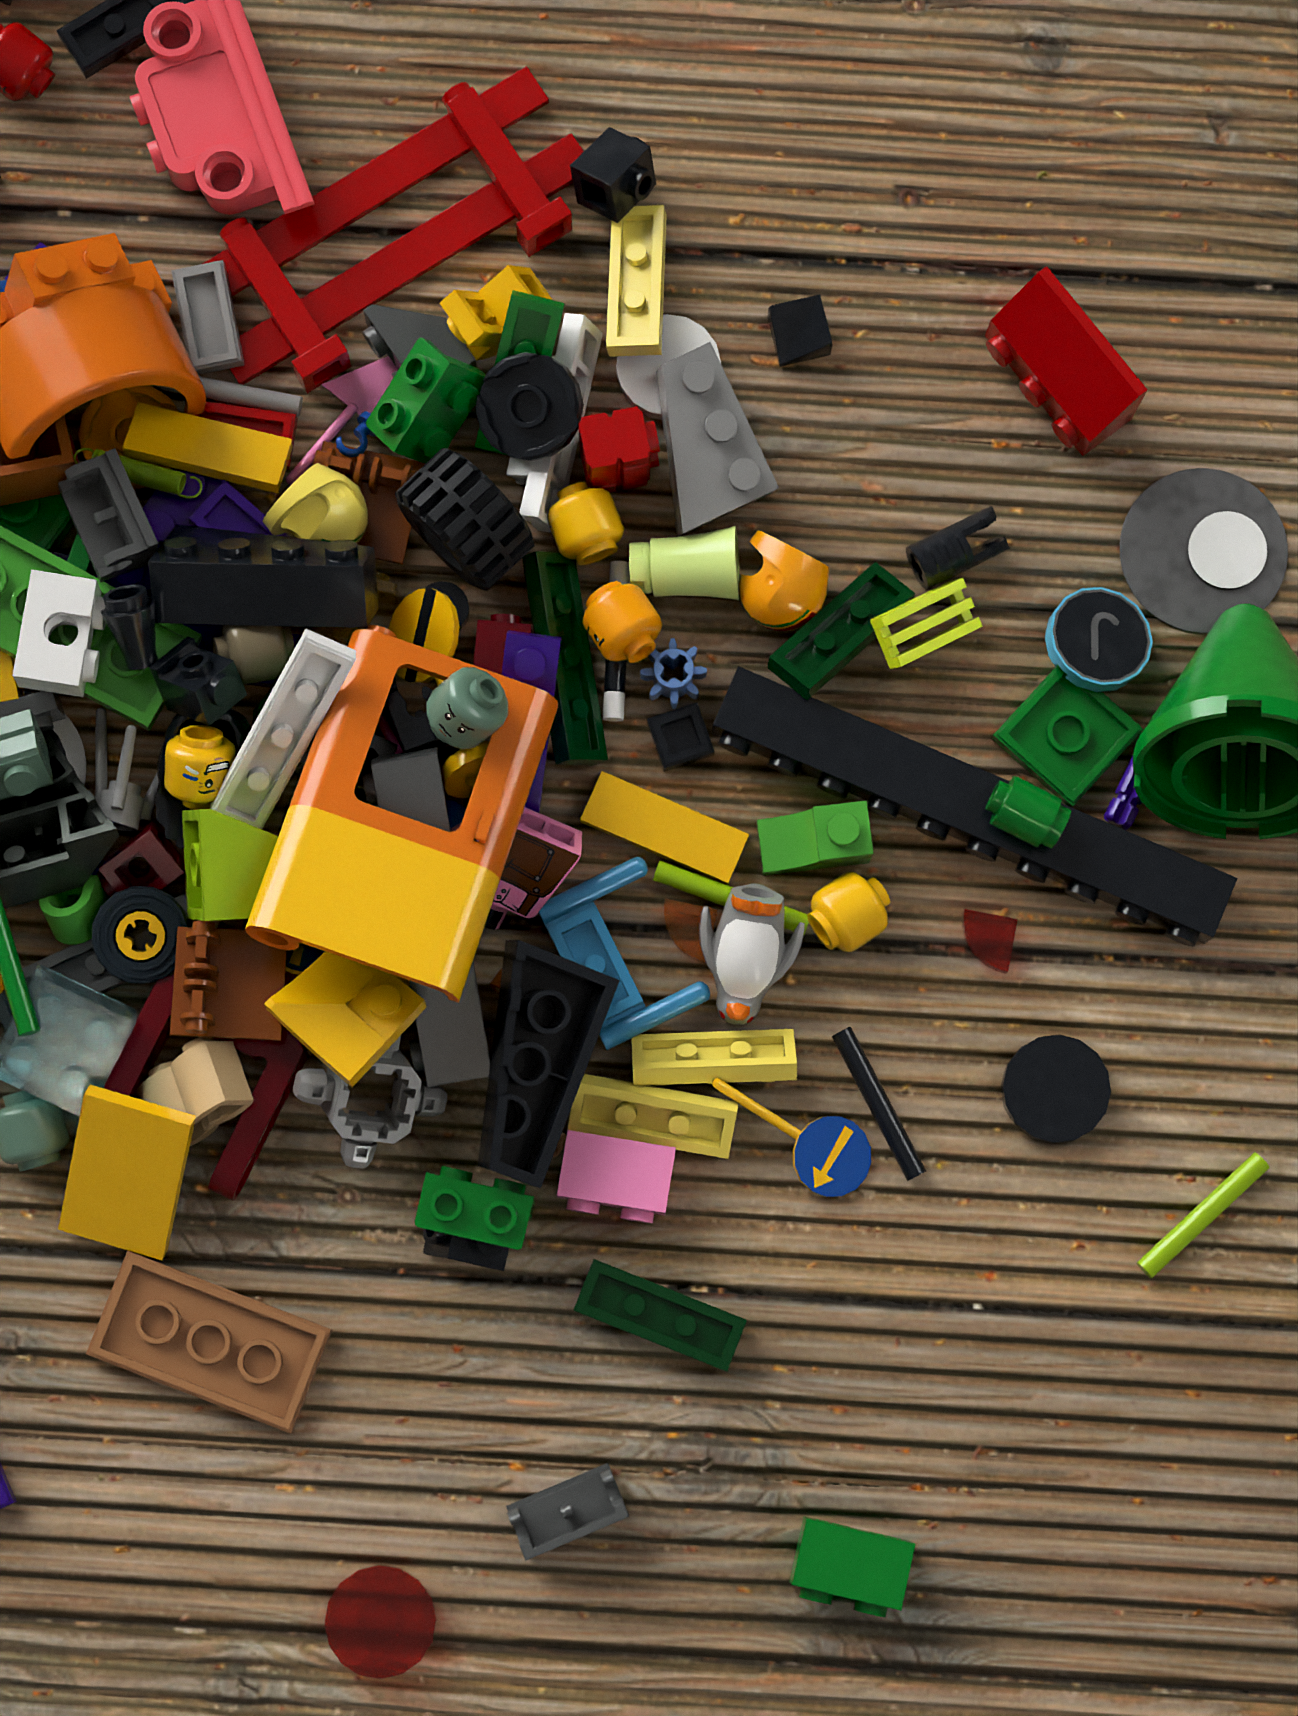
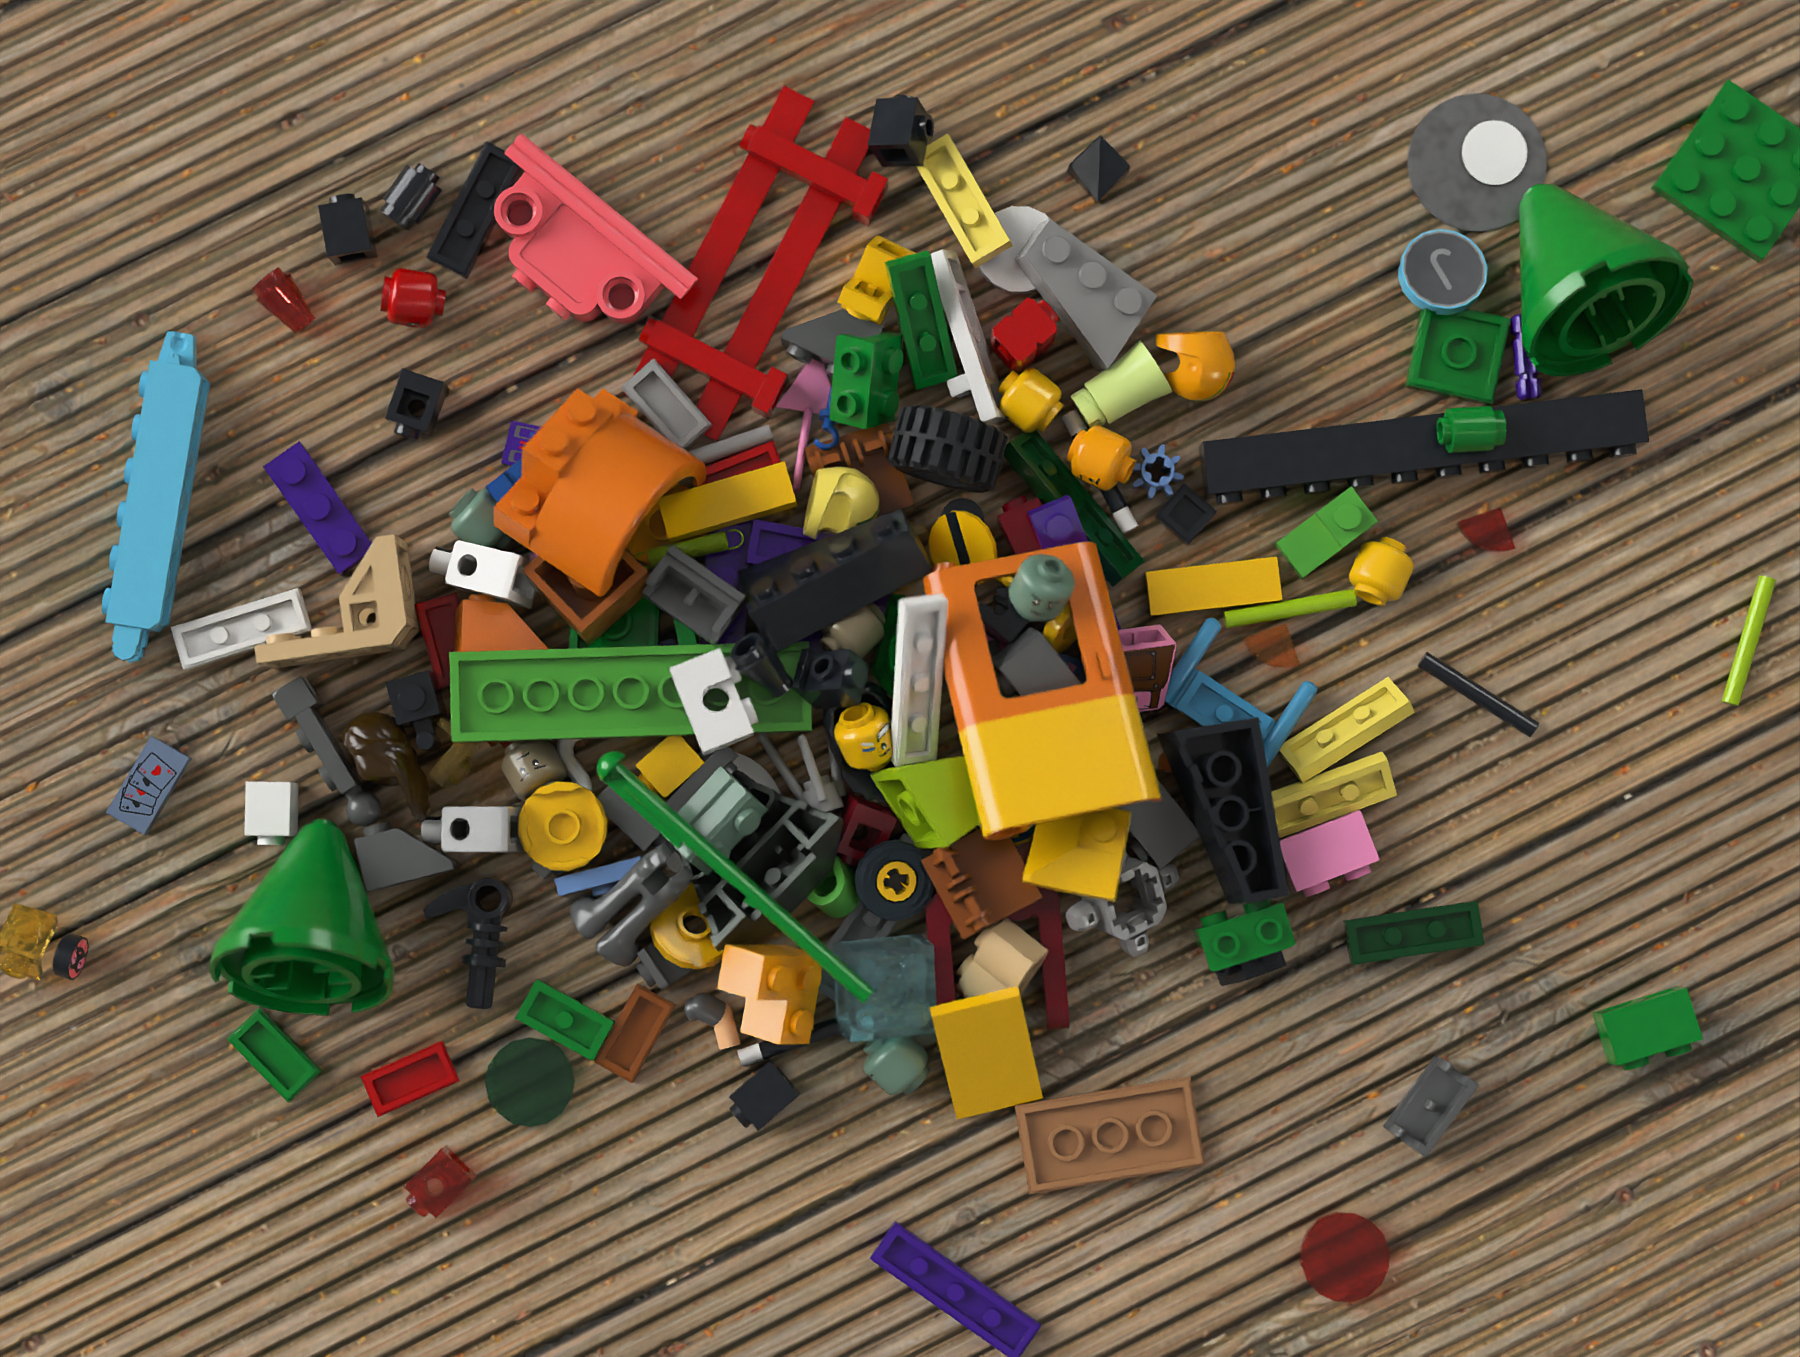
camera: 30 degrees left, 5 degrees up
(529, 406) = (945, 340): black tile -> none
(747, 950) = (1326, 639): animal -> none
(828, 1153) = (1463, 750): blue piece -> none
(837, 631) = (1258, 372): dark green plate -> none
(949, 552) = (1299, 269): black hinge -> none
(960, 608) = (1331, 308): neon yellow tile -> none
(1056, 1089) = (1596, 612): black tile -> none
(1064, 363) = (1306, 85): red slope -> none

